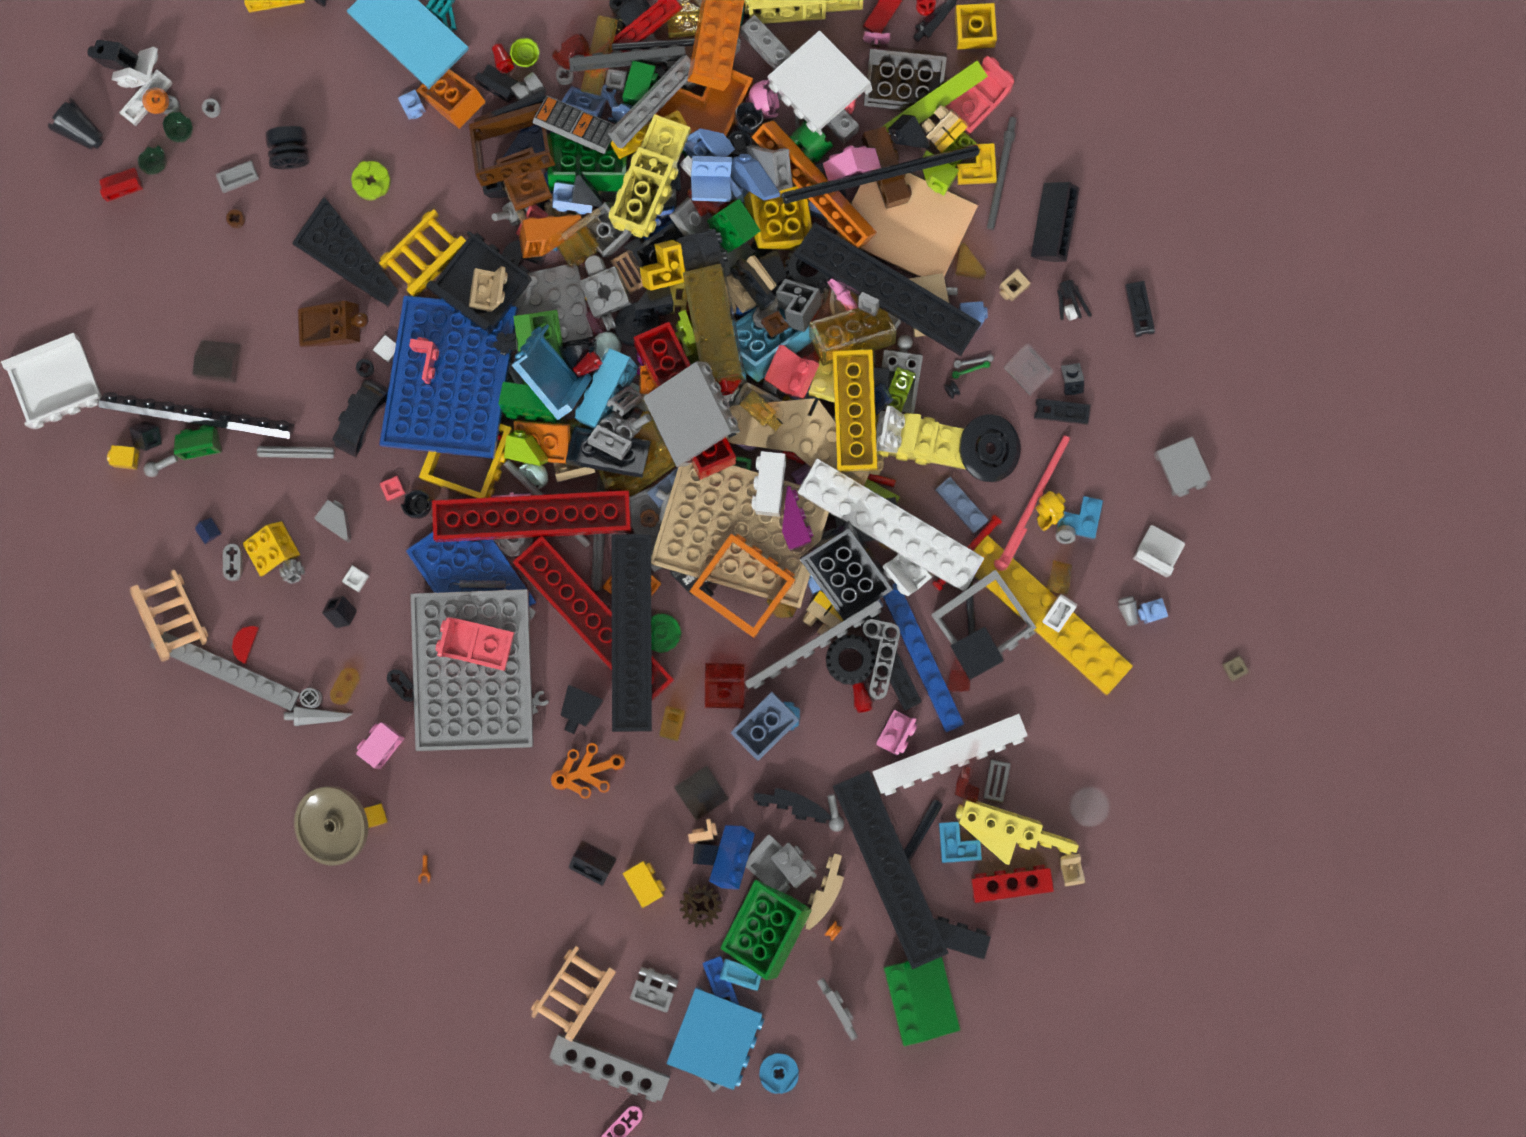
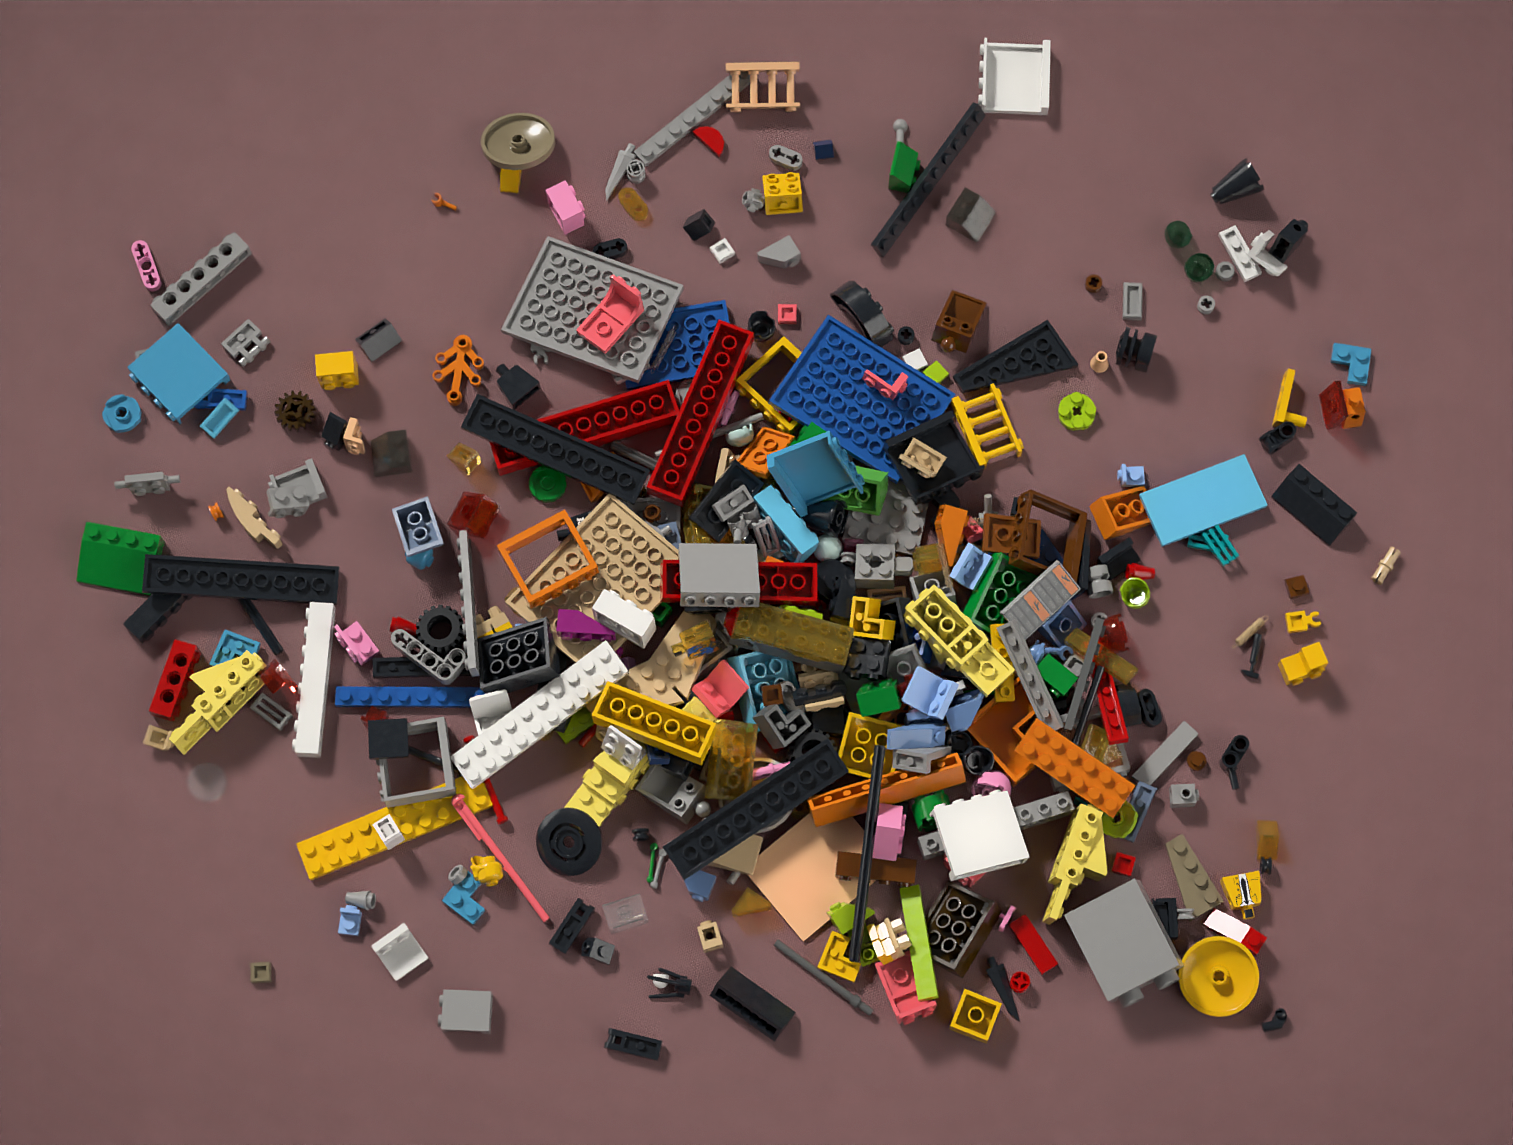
camera: 115 degrees right, 10 degrees down
(120, 184) = (1169, 201): red panel -> none
(123, 457) = (920, 106): yellow brick -> none
(145, 436) = (930, 131): black panel -> none
(157, 106) = (1231, 262): orange cone -> none
(295, 452) = (858, 247): light grey axle -> none
(315, 181) = (1099, 362): none -> light nougat cone
(389, 324) = (936, 372): none -> lime tile
(505, 343) = (866, 456): black plant -> none
(524, 448) = (764, 432): lime slope -> none
(582, 1011) = (267, 289): light nougat fence -> none
(584, 192) = (970, 578): black slope -> none
(588, 364) = (813, 518): red cone -> none
(732, 857) = (321, 451): blue brick -> none
(765, 930) = (244, 453): green slope -> none
(801, 806) = (337, 532): black slope -> none
(836, 822) = (307, 557): light grey bar -> none
(868, 304) = (749, 784): light grey tile -> none
(900, 387) = (661, 782): lime slope -> none
(908, 132) = (897, 901): black slope -> none
(961, 505) = (531, 795): sand blue plate -> none
(1059, 577) = (420, 849): clear yellow slope -> none

